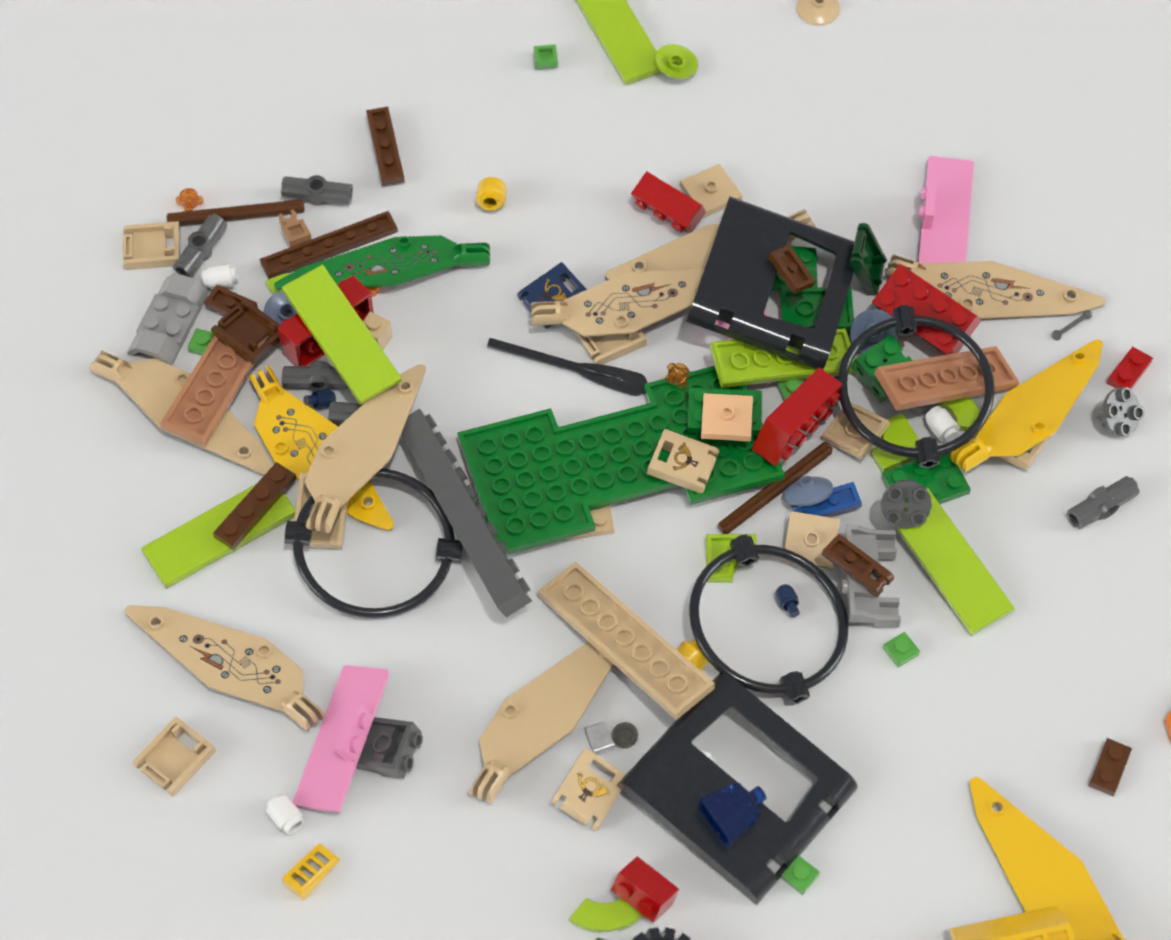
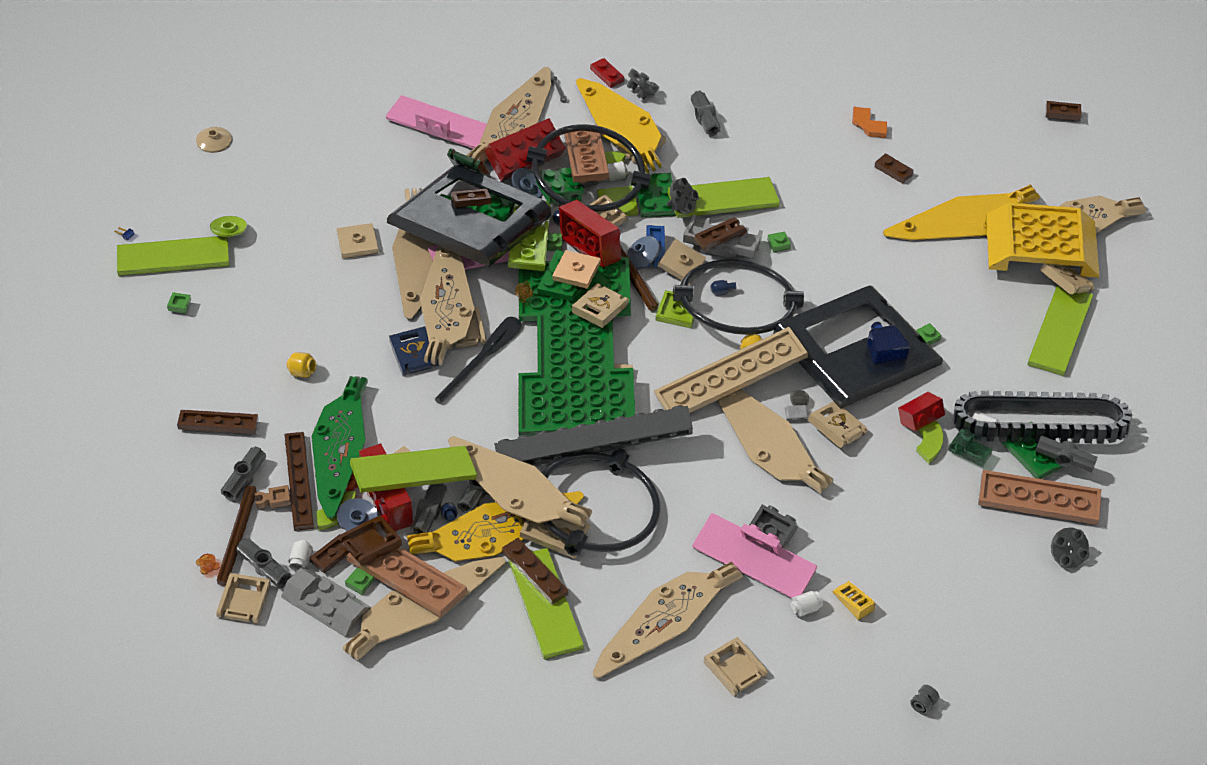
camera: 75 degrees left, 10 degrees down
(668, 203) = (362, 263): red brick -> none

